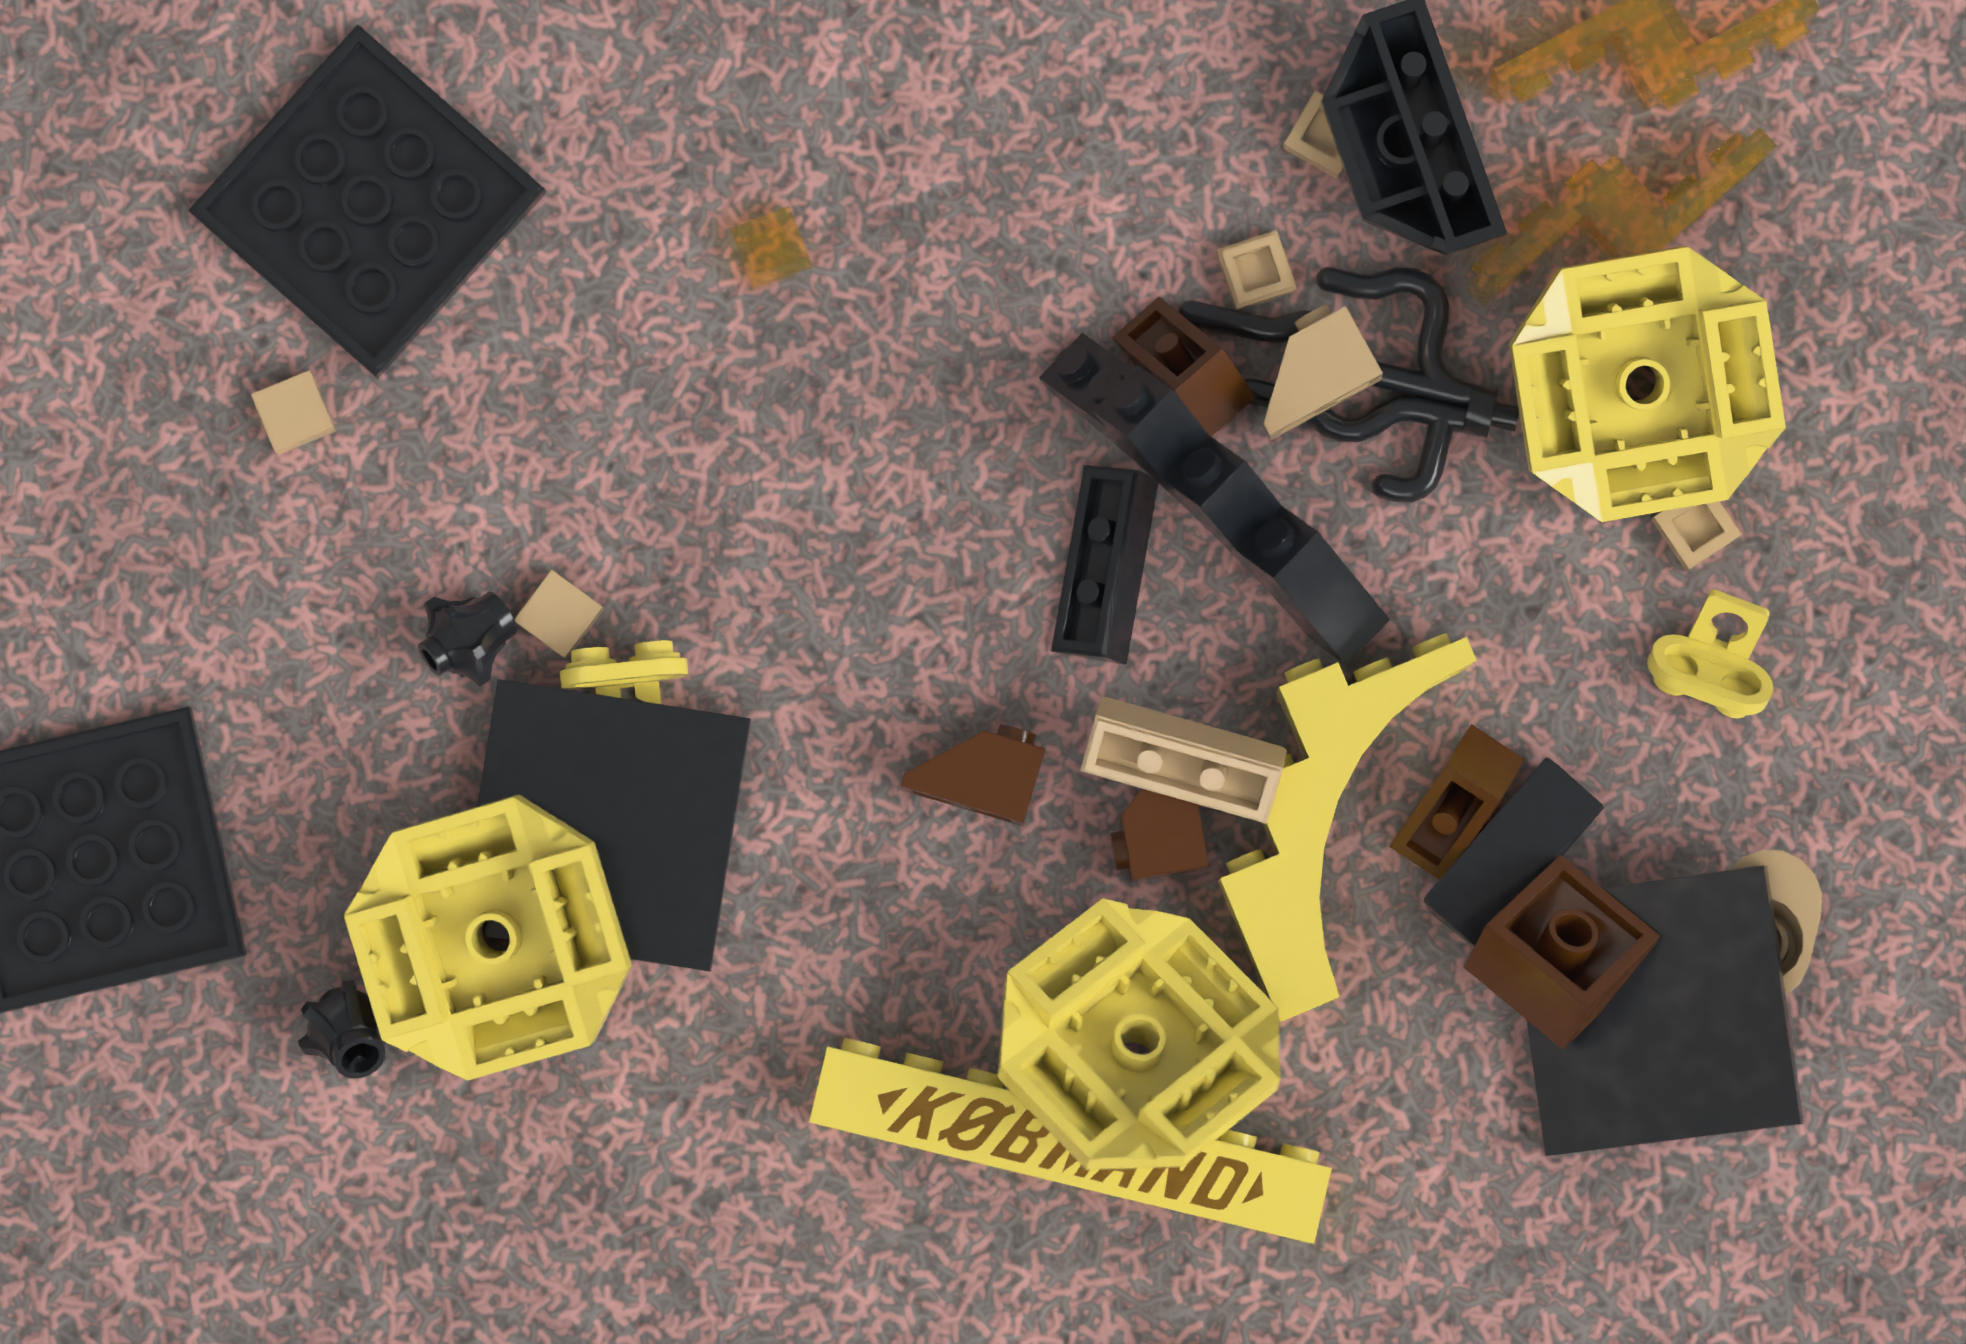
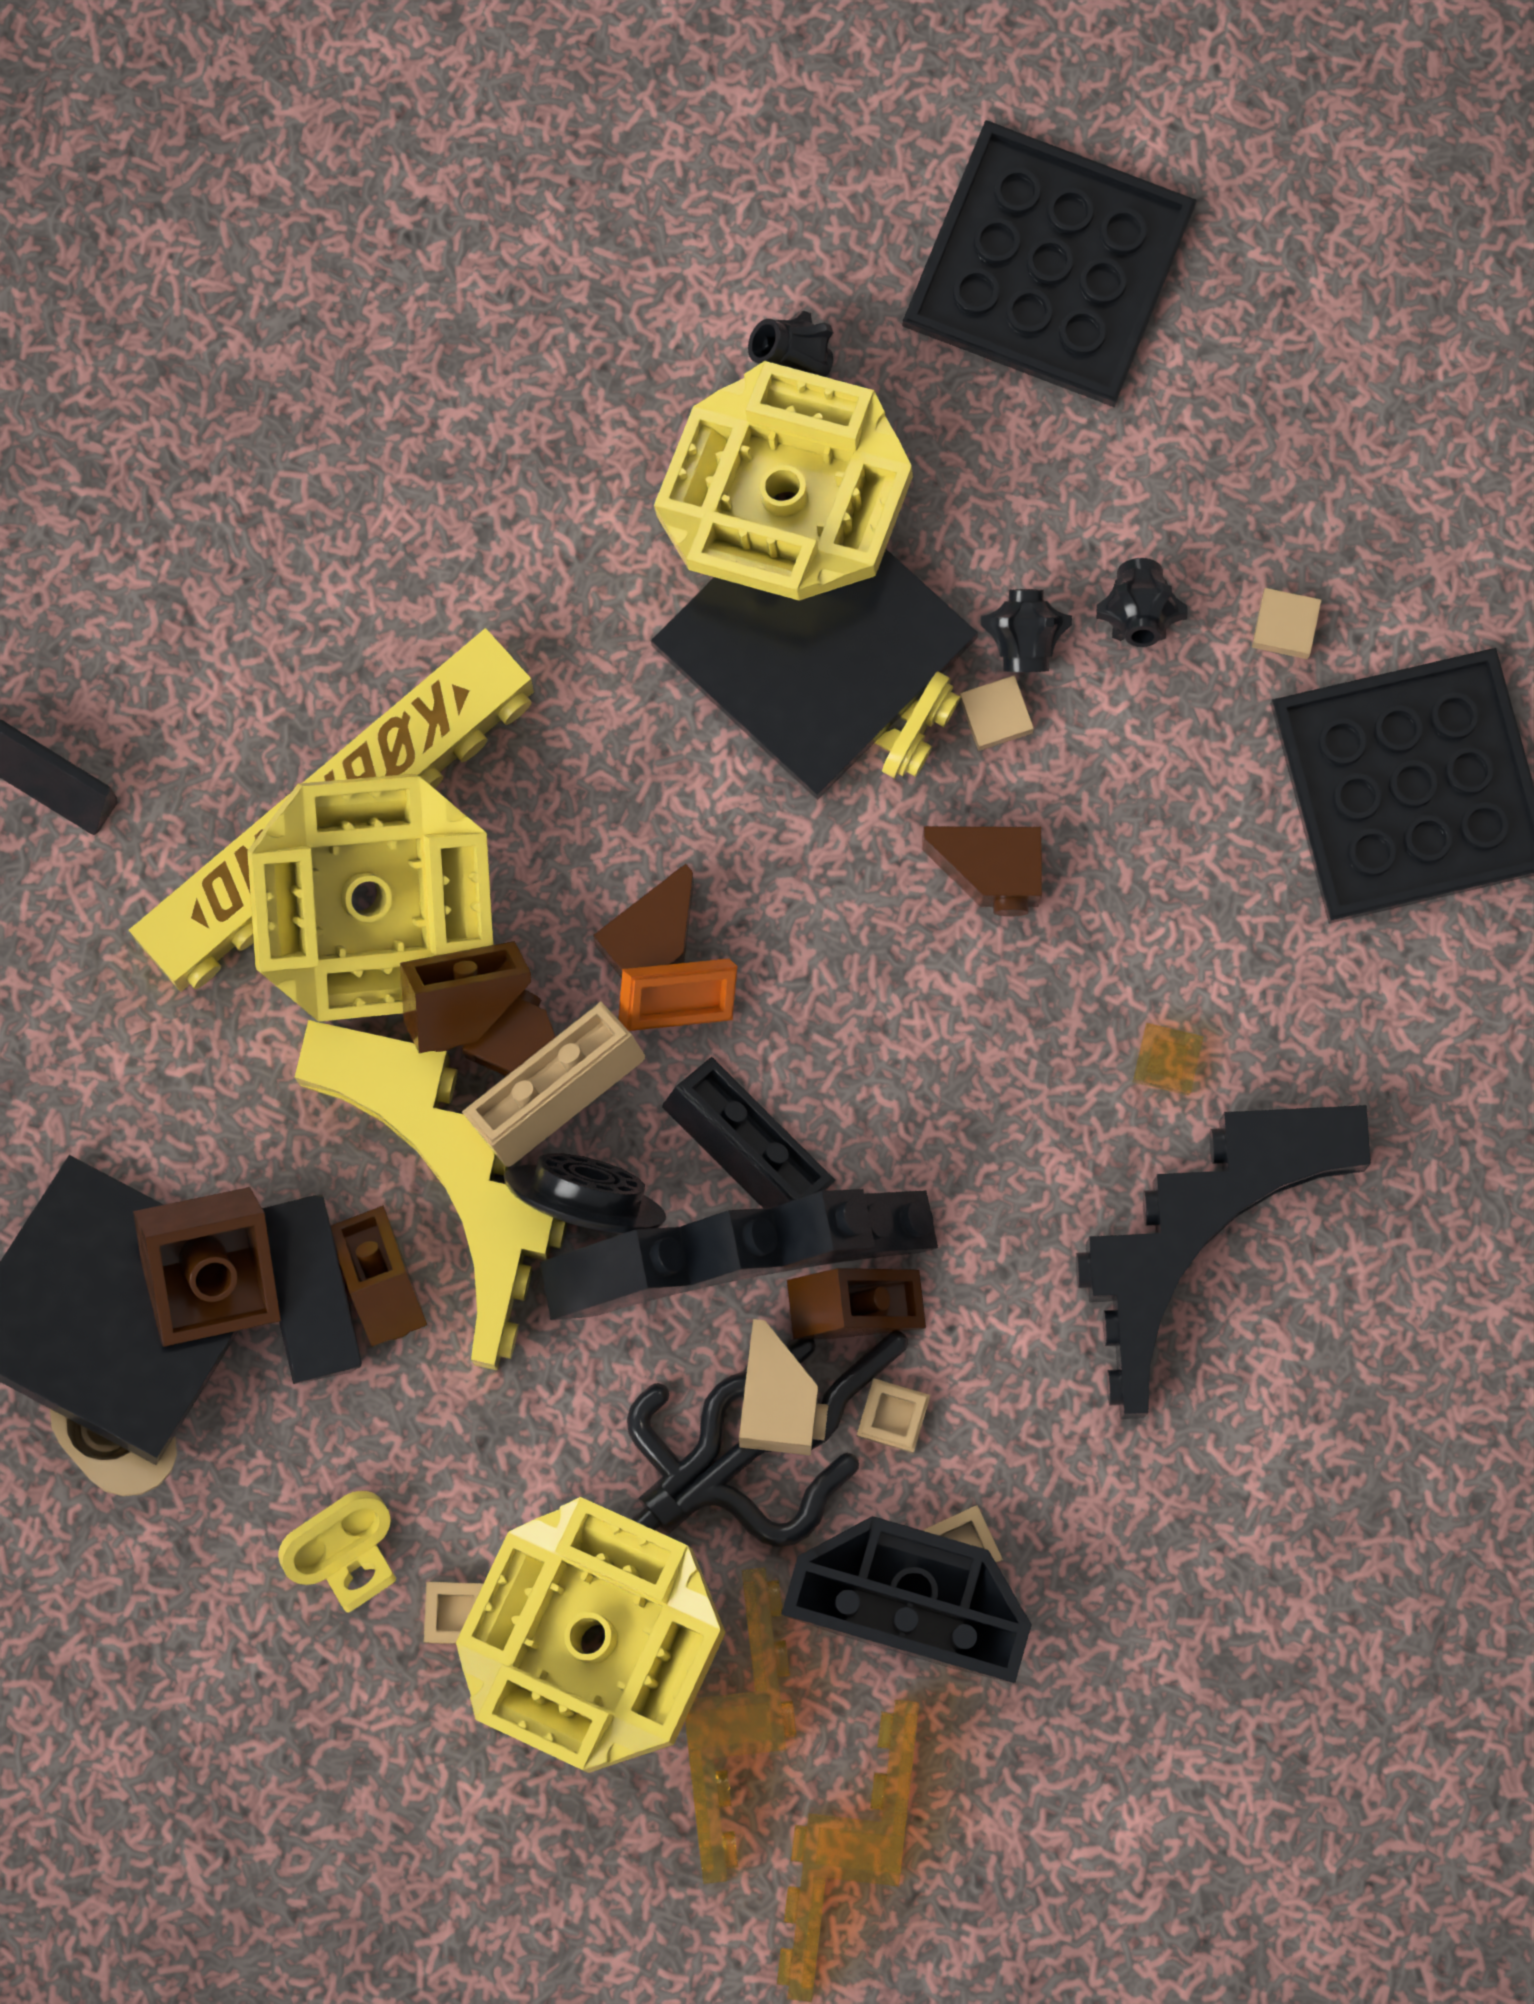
camera: 125 degrees right, 5 degrees down
(369, 549) = (1141, 604): none -> black rock
(705, 517) = (990, 864): none -> reddish brown slope
(898, 132) = (1259, 1158): none -> black arch
(1023, 711) = (677, 994): none -> orange tile
(1163, 895) = (460, 994): none -> reddish brown slope
(1265, 658) = (585, 1193): none -> black wheel

